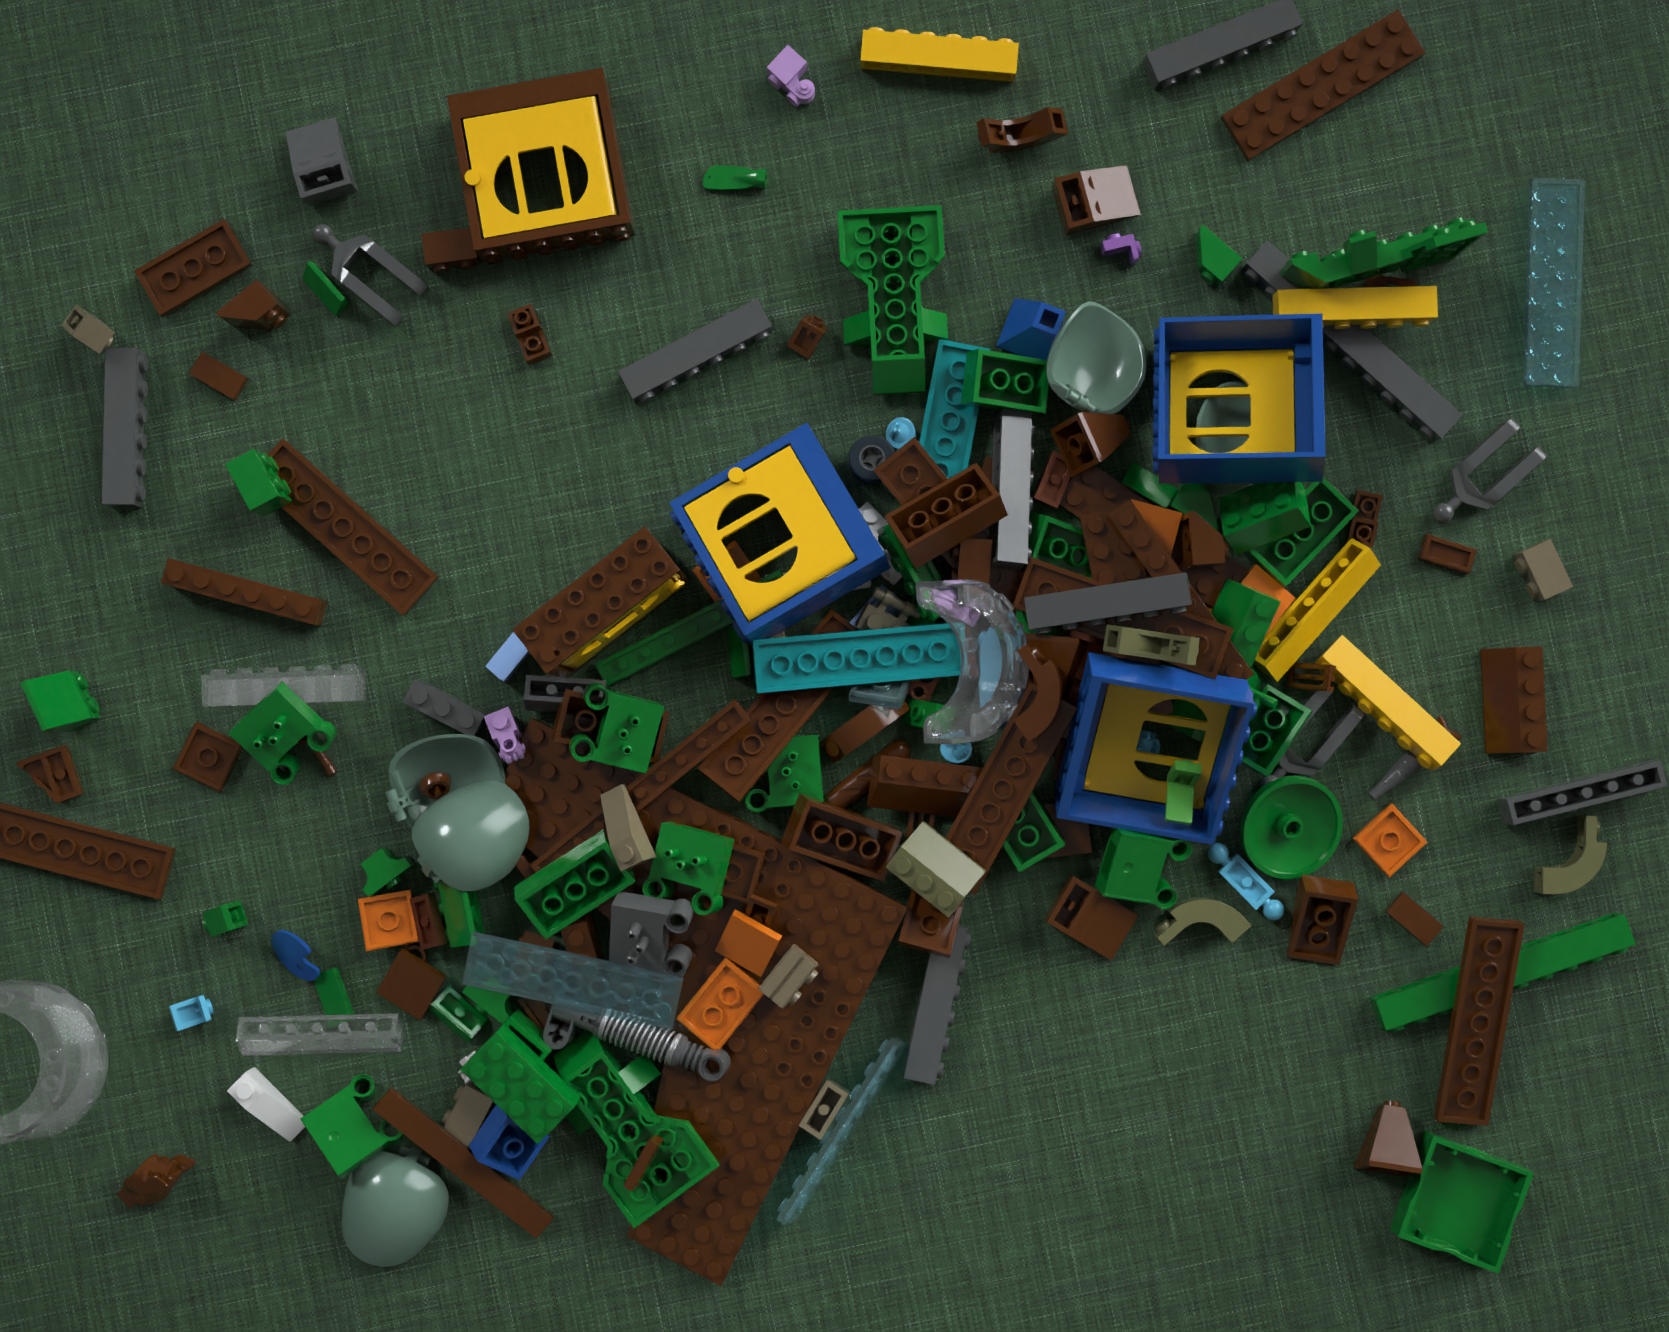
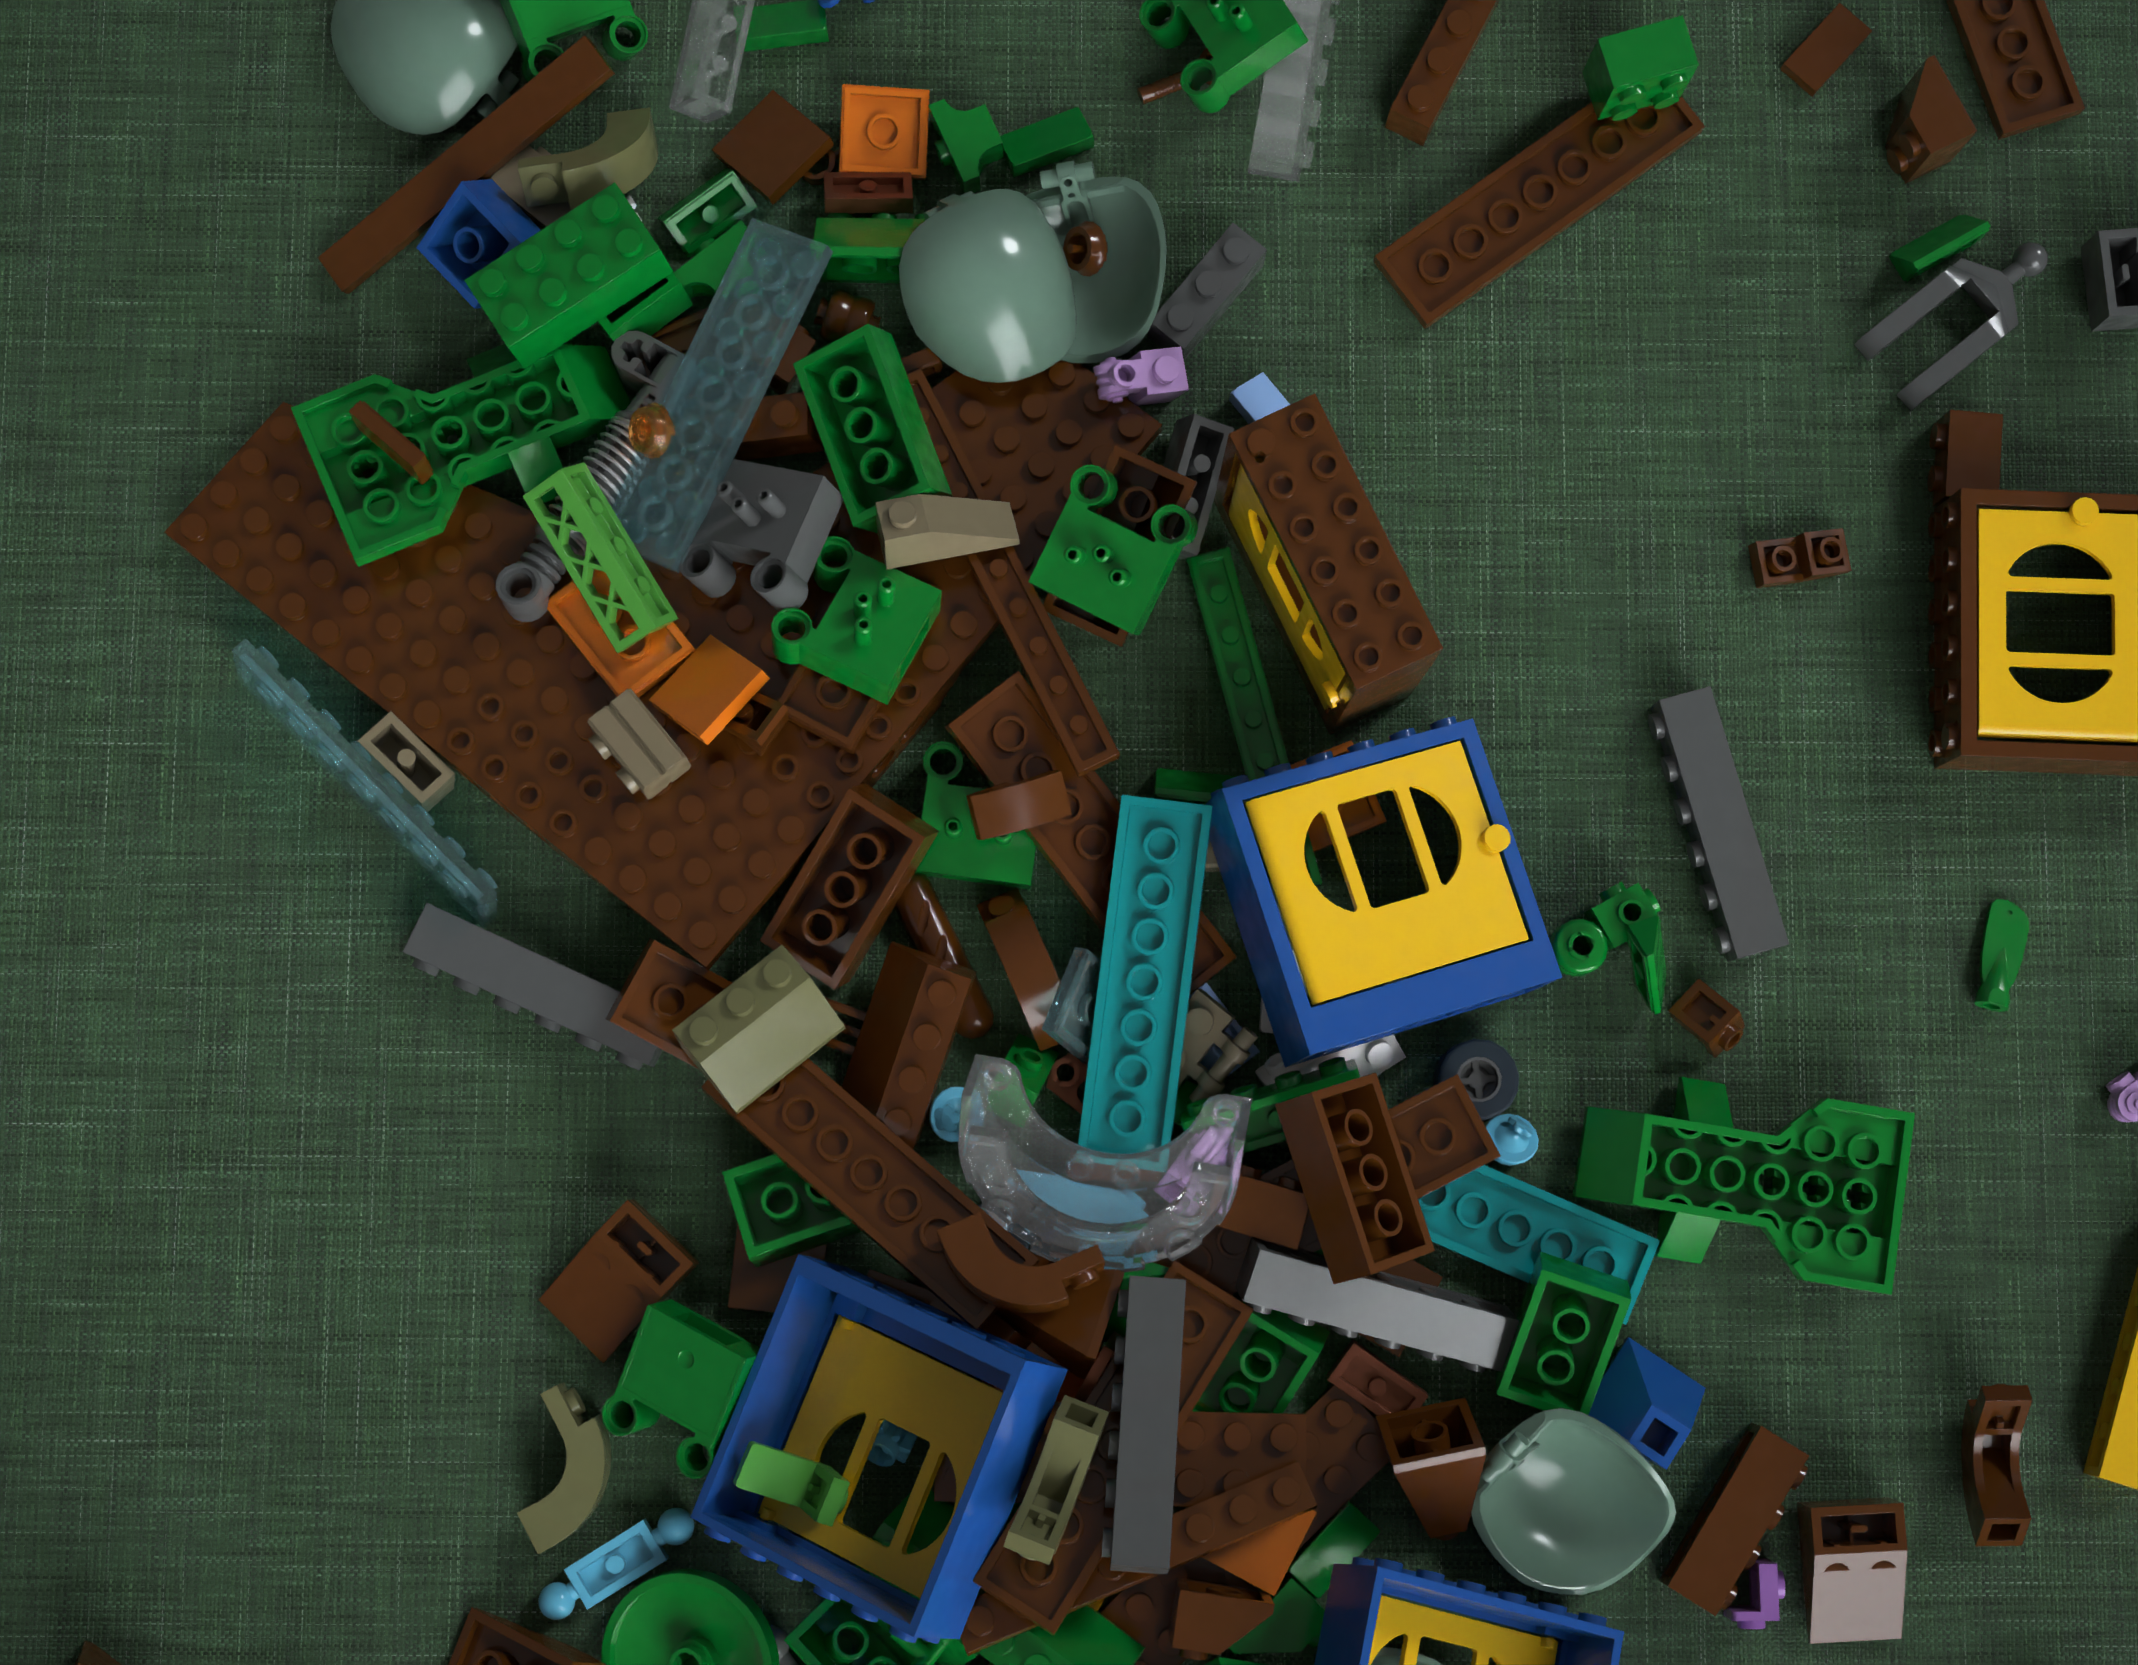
camera: 100 degrees right, 5 degrees down
(372, 823) = (1047, 141): none -> green slope
(445, 1076) = (621, 155): none -> olive arch
(507, 916) = (844, 315): none -> reddish brown piece
(604, 1012) = (651, 430): none -> clear orange hat
(677, 1020) = (614, 553): none -> bright green fence
(764, 403) = (1609, 914): none -> green brick
(776, 749) = (1019, 805): none -> reddish brown slope
(784, 375) = (1648, 961): none -> green slope
(788, 408) = (1587, 935): none -> green piece
(1083, 268) = (1735, 1518): none -> reddish brown brick

